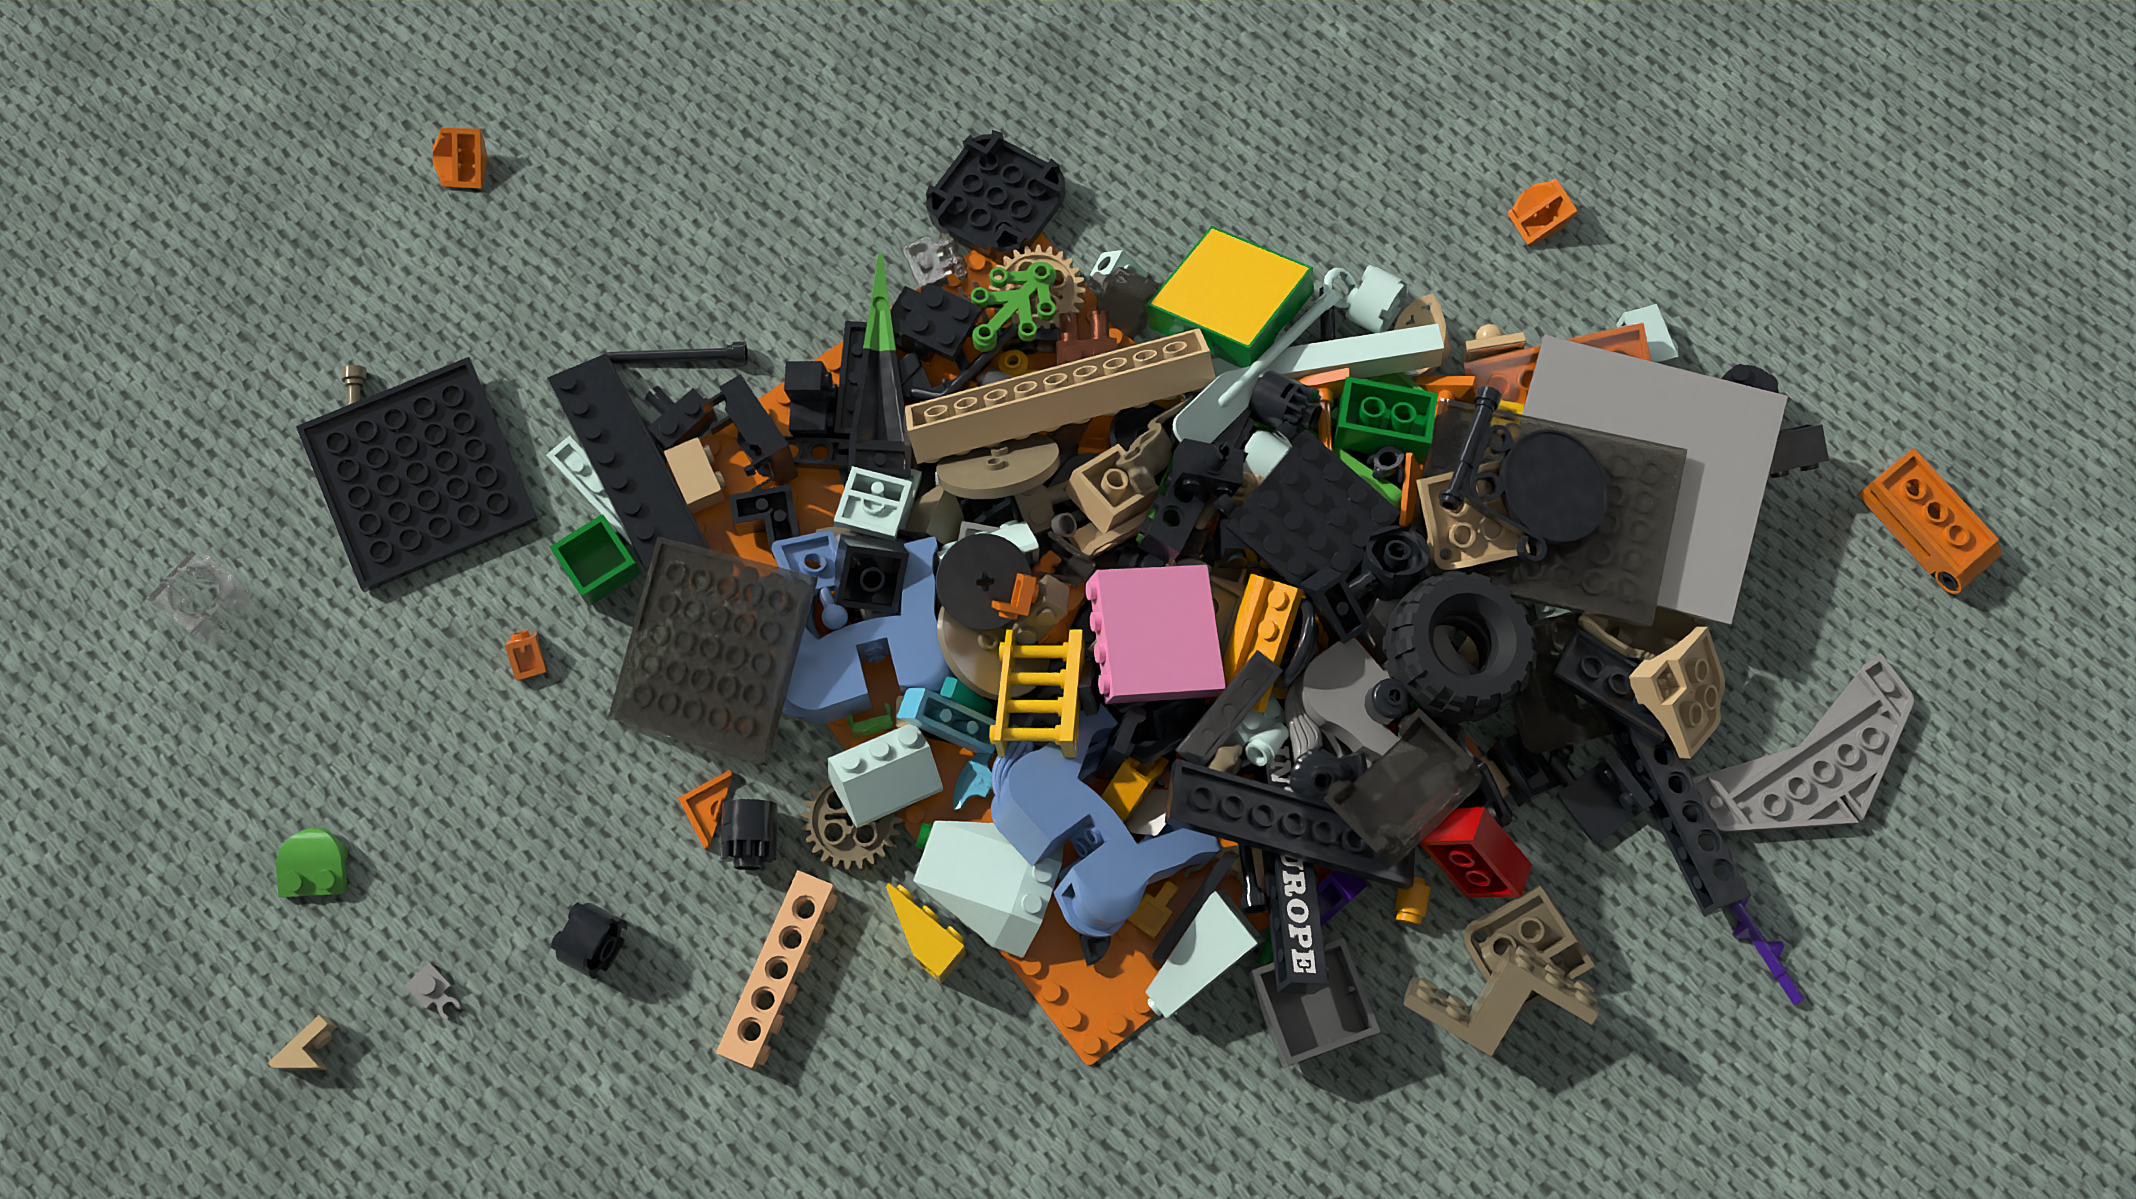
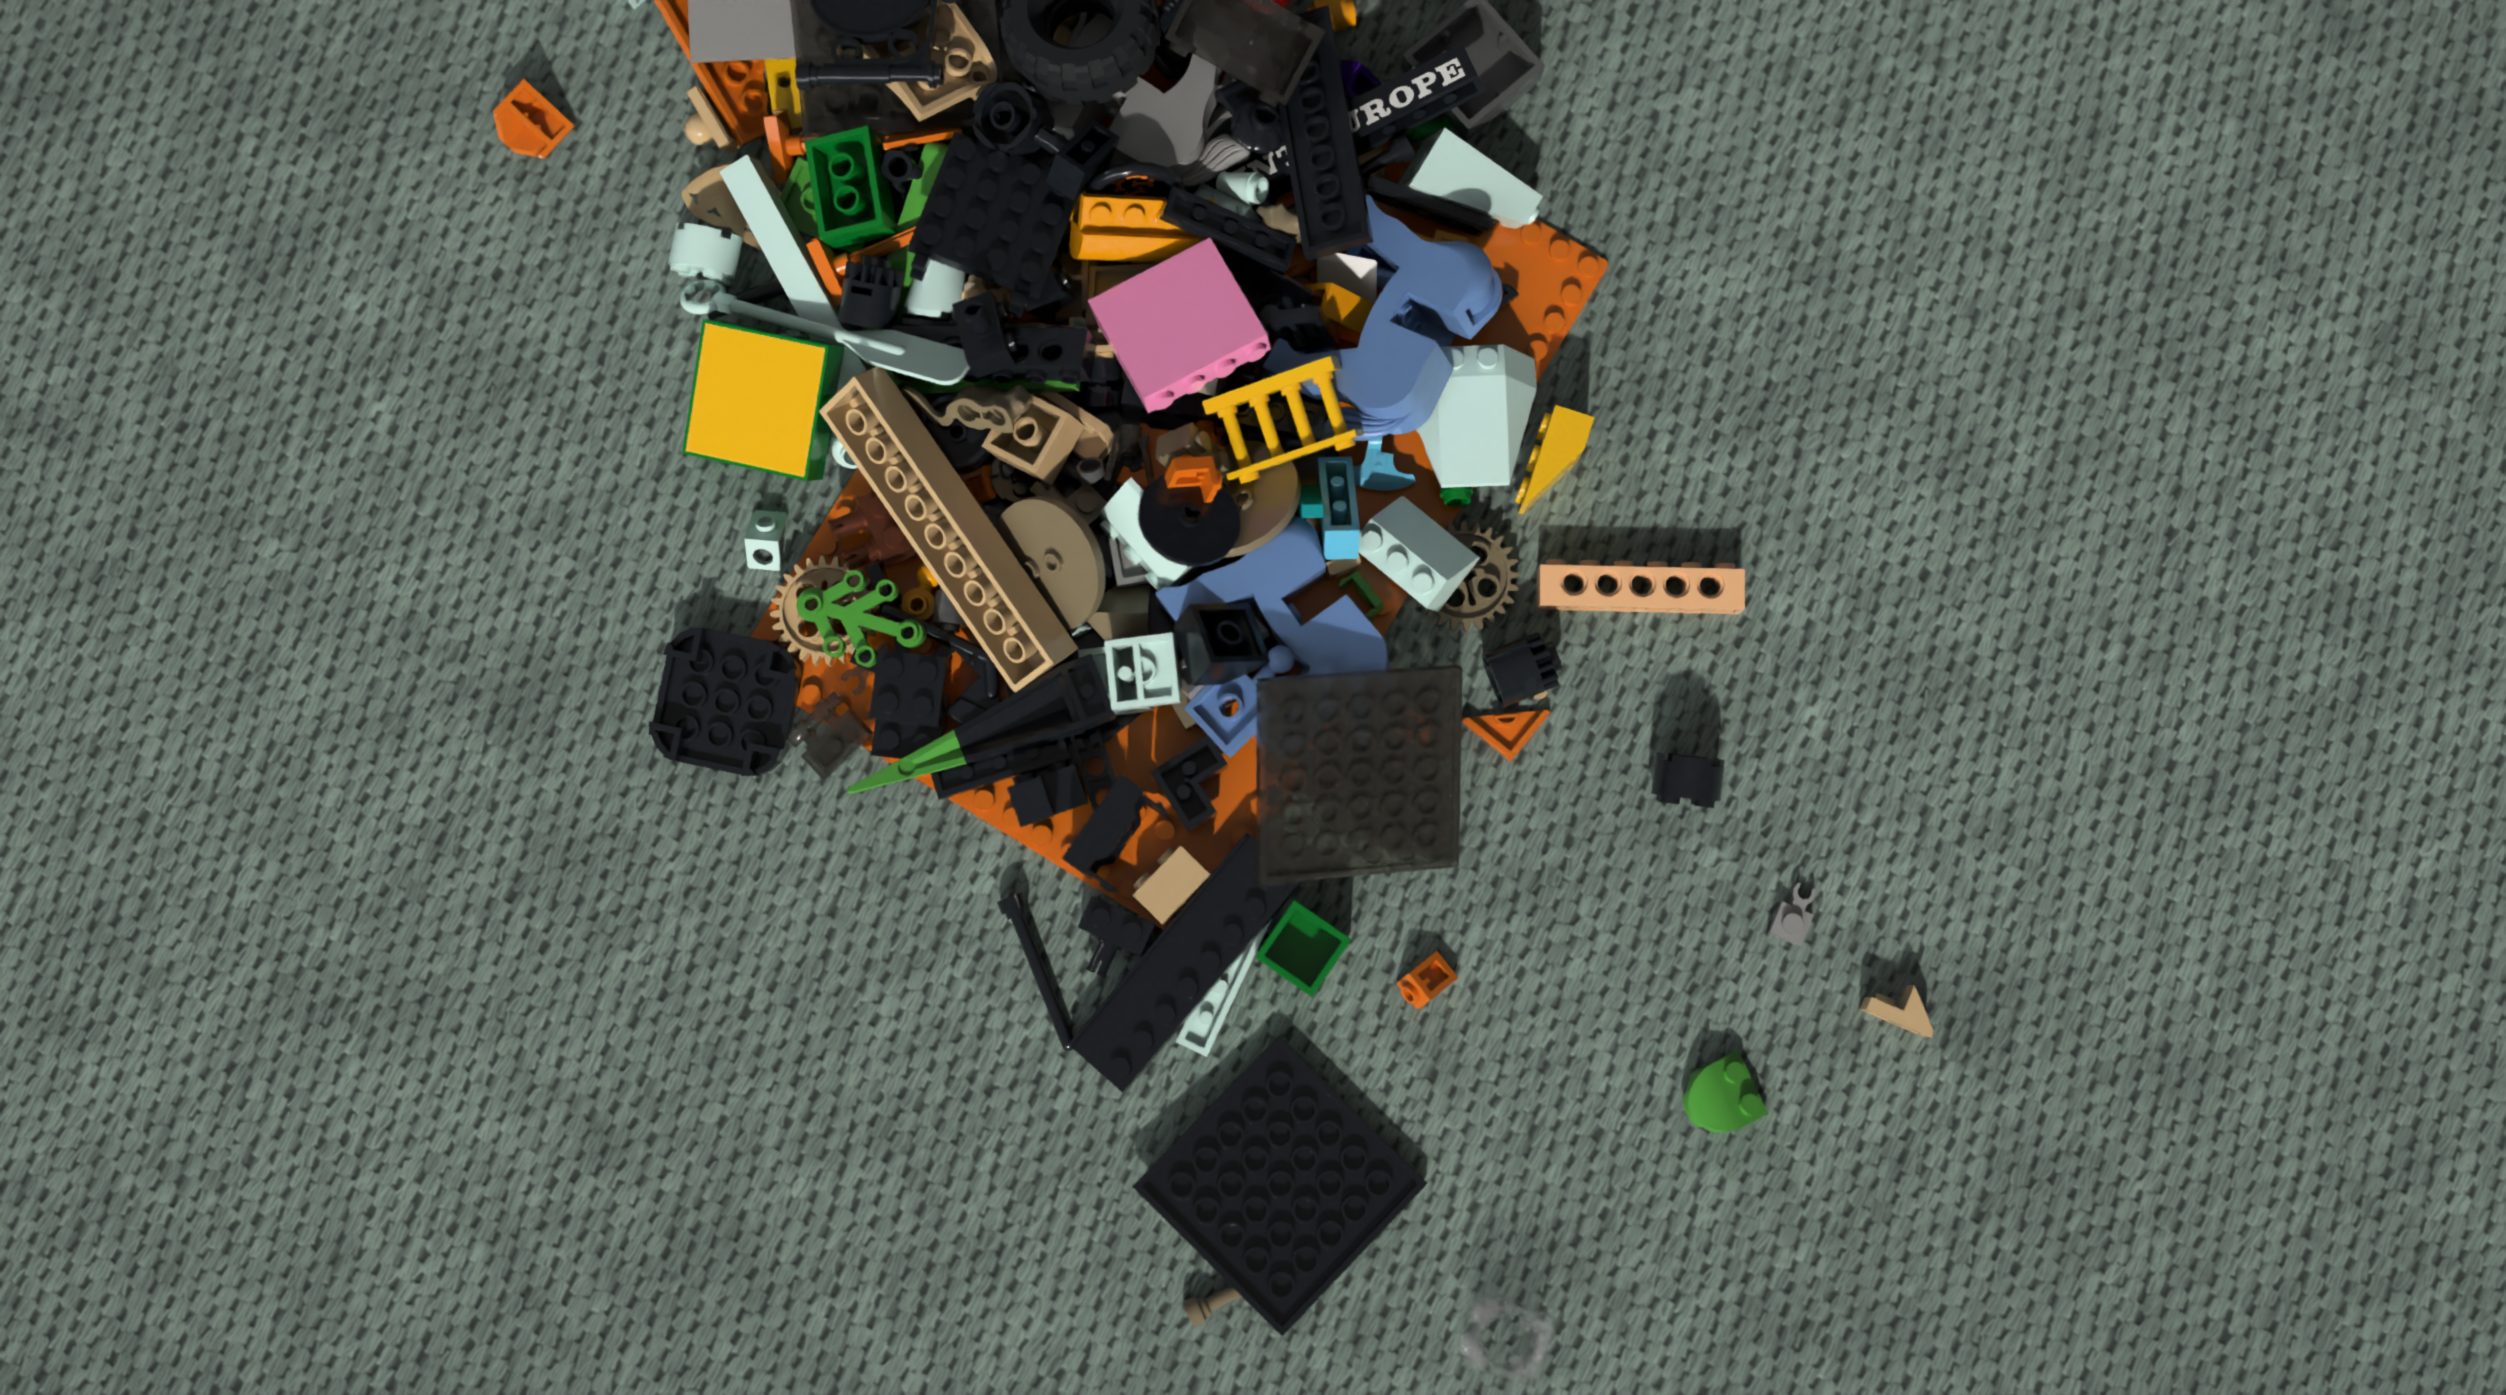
camera: 105 degrees left, 10 degrees up
(460, 157) = (897, 1317): orange slope -> none
(1088, 687) = (1255, 373): black tile -> none
(1125, 298) = (801, 514): clear smoke torso -> none
(1387, 701) = (1164, 75): black head -> none

